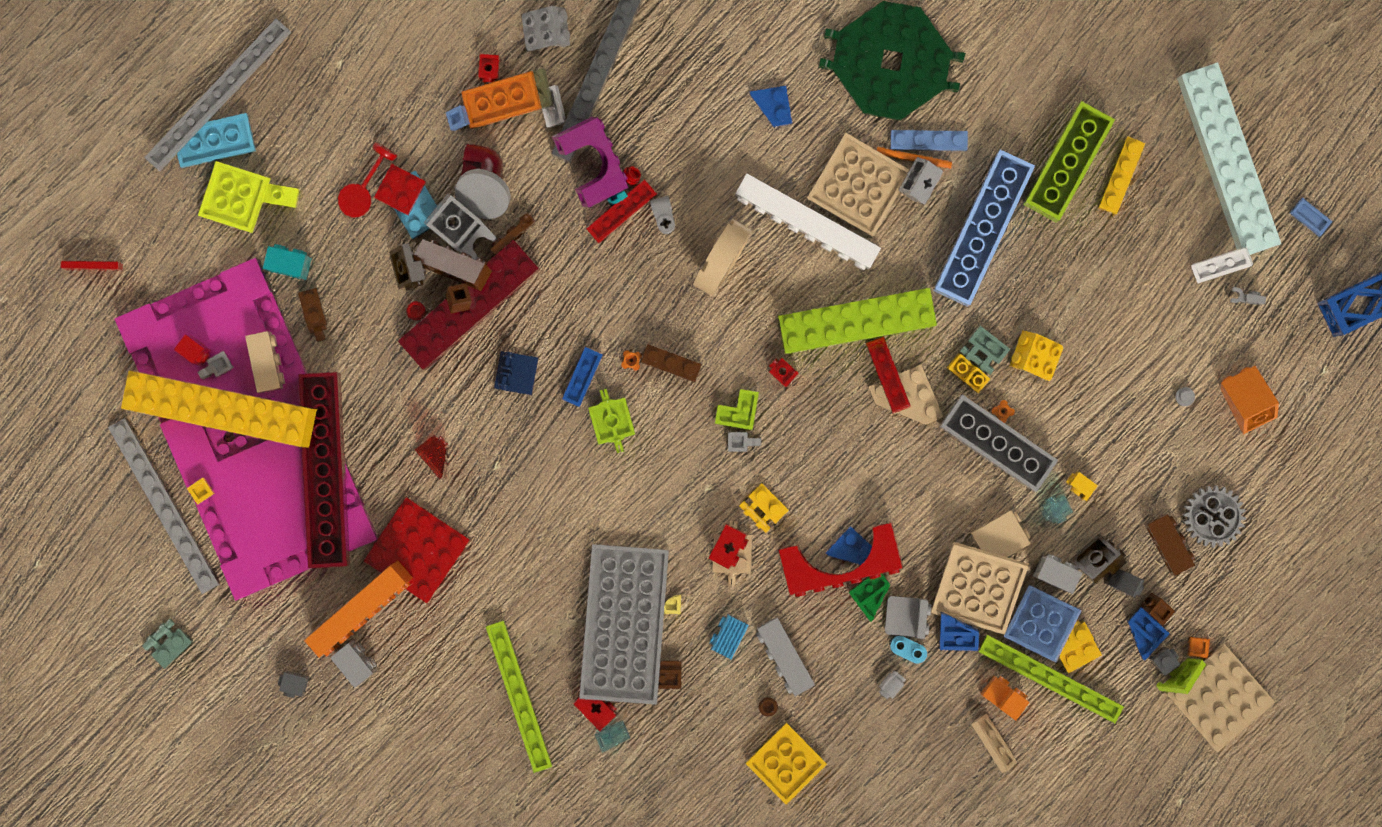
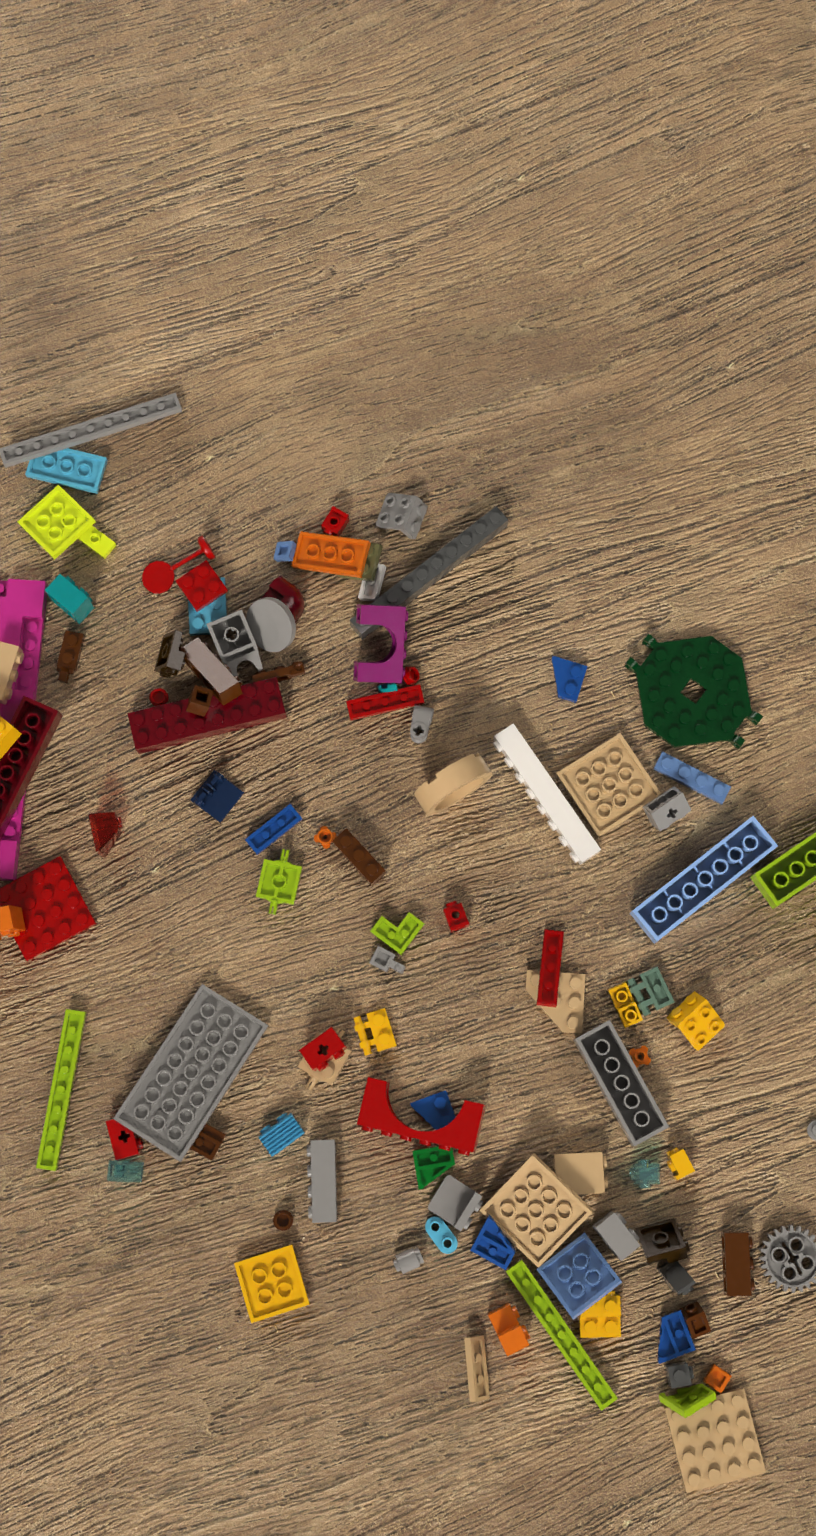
camera: 25 degrees right, 10 degrees down
(673, 605) = (246, 1078): light yellow tile -> none
(857, 321) = (546, 905): lime brick -> none
(912, 157) = (668, 784): orange bar -> none

